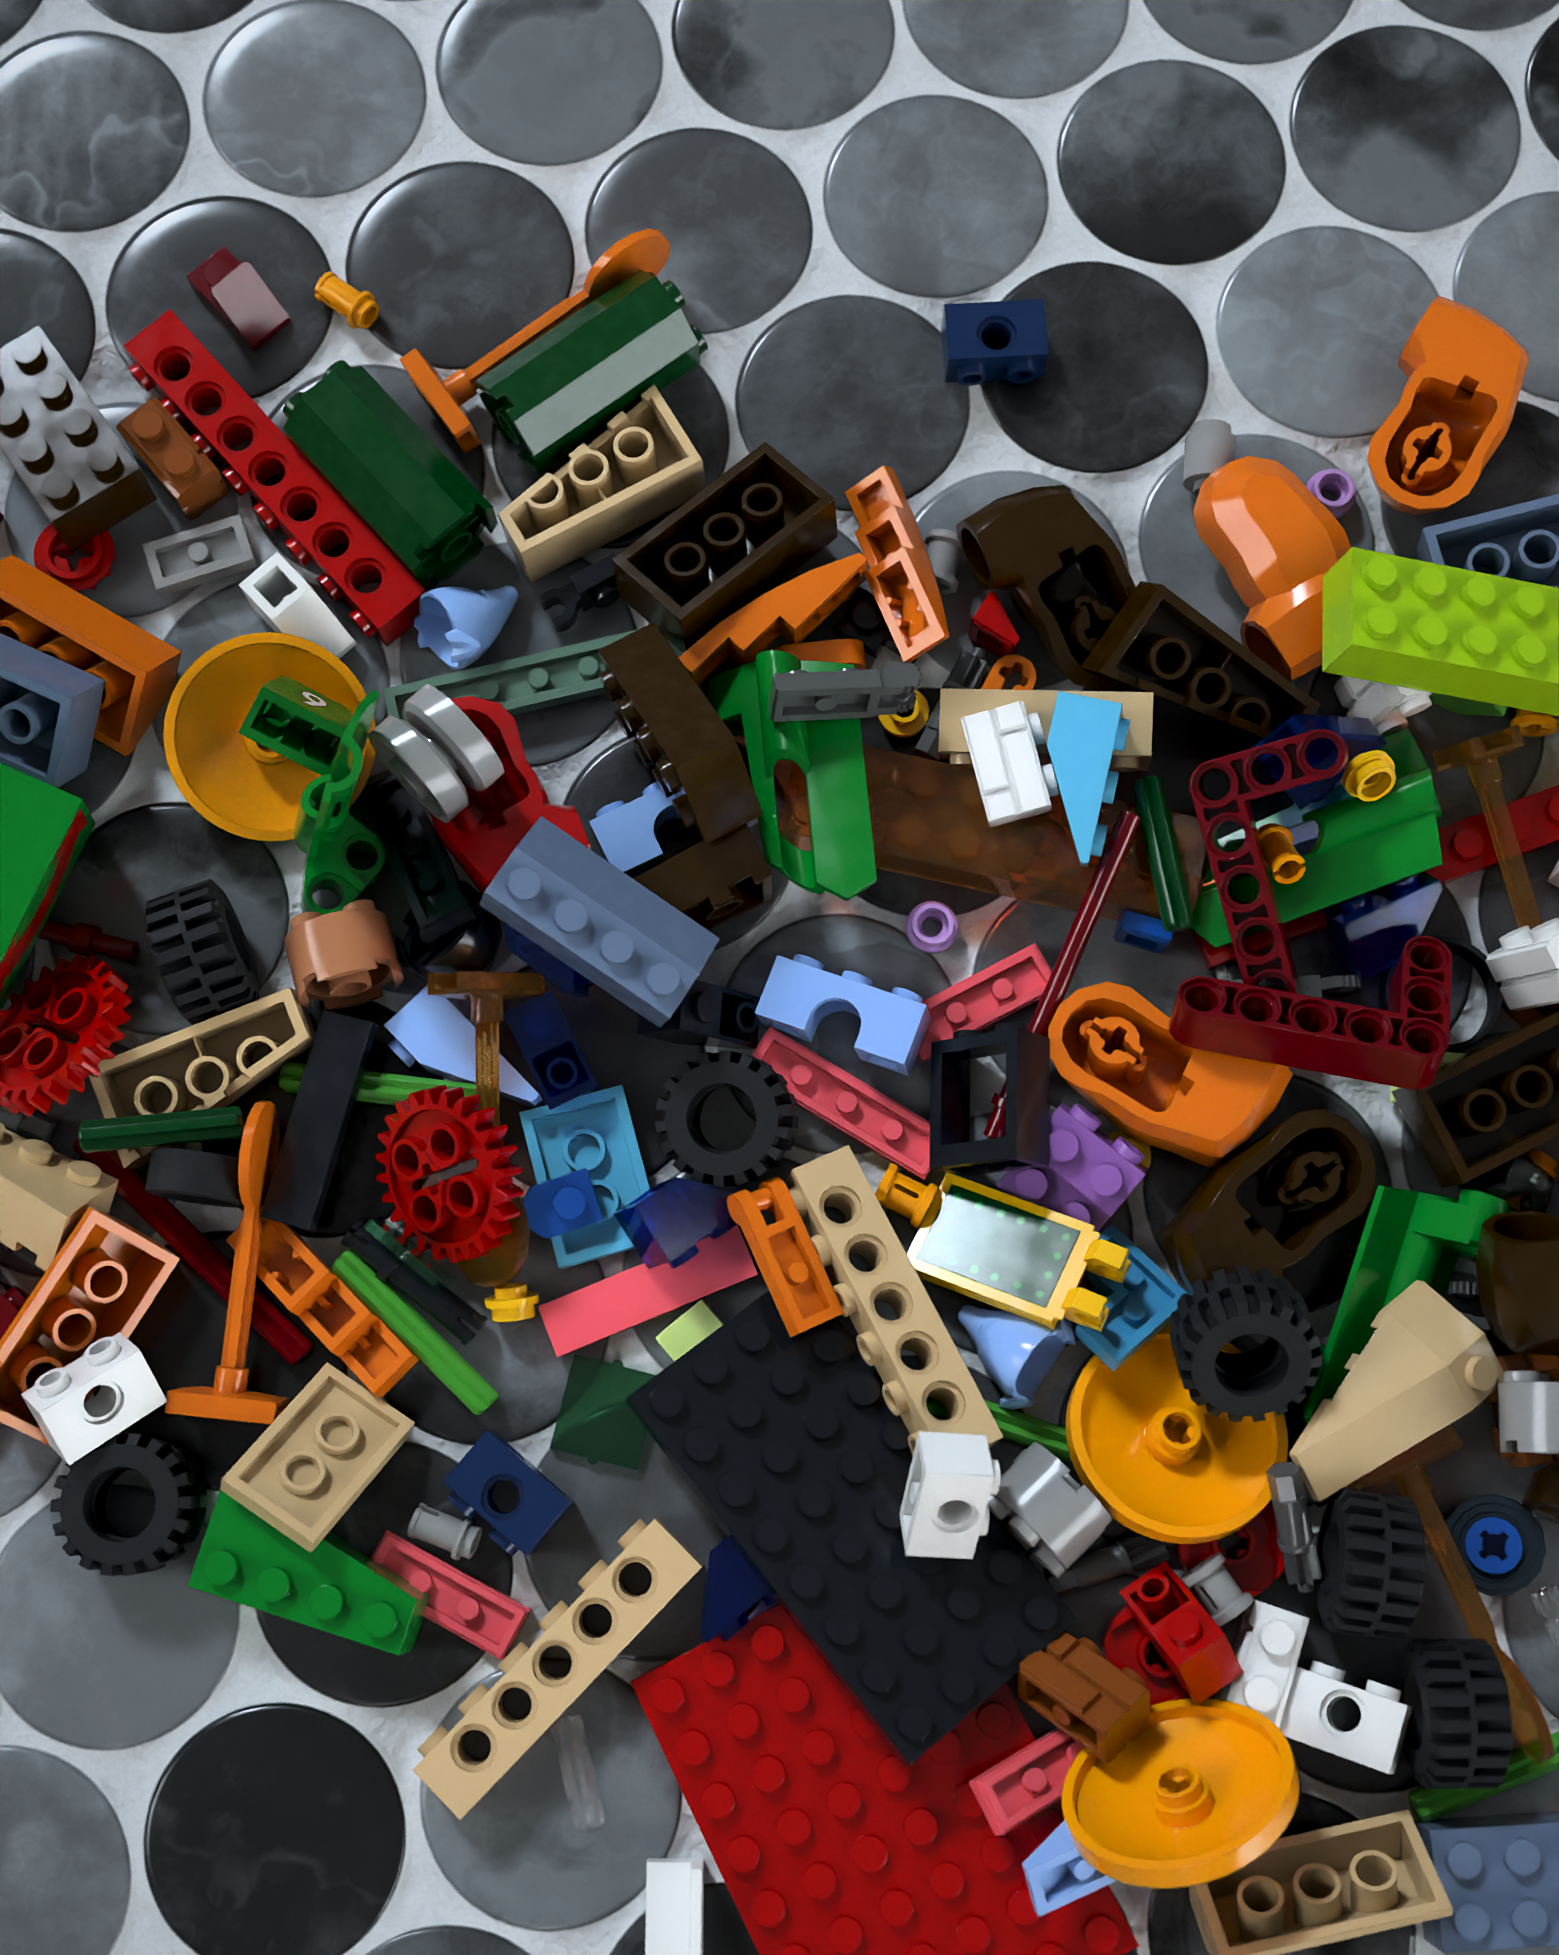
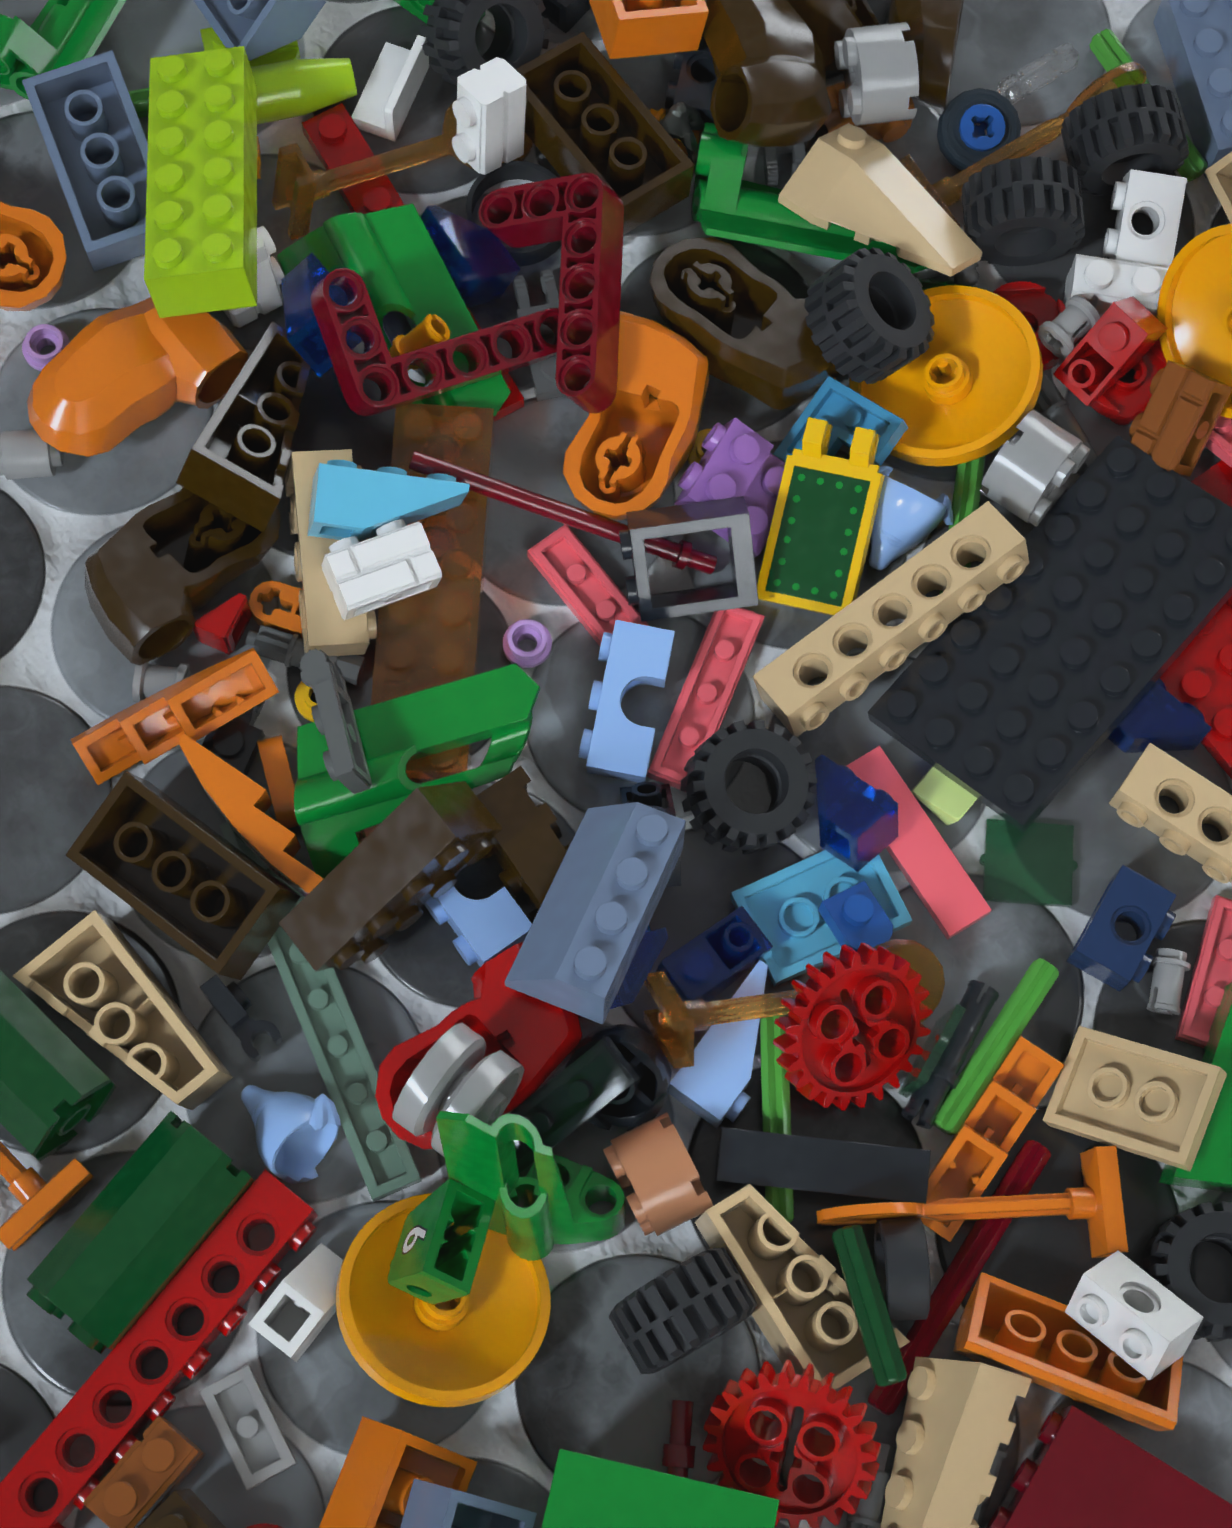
camera: 105 degrees left, 5 degrees down
(512, 1302) = (955, 957): yellow plate -> none
(785, 1256) = (866, 711): orange plate -> none
(905, 1195) = (783, 626): light orange bush -> none
(948, 1495) = (1052, 532): white brick -> none
(1142, 932) = (503, 453): blue tile -> none
(1163, 854) = (440, 432): dark green axle -> none
(1294, 1525) = (1006, 272): dark grey piece -> none
(1369, 775) = (343, 256): yellow plate -> none

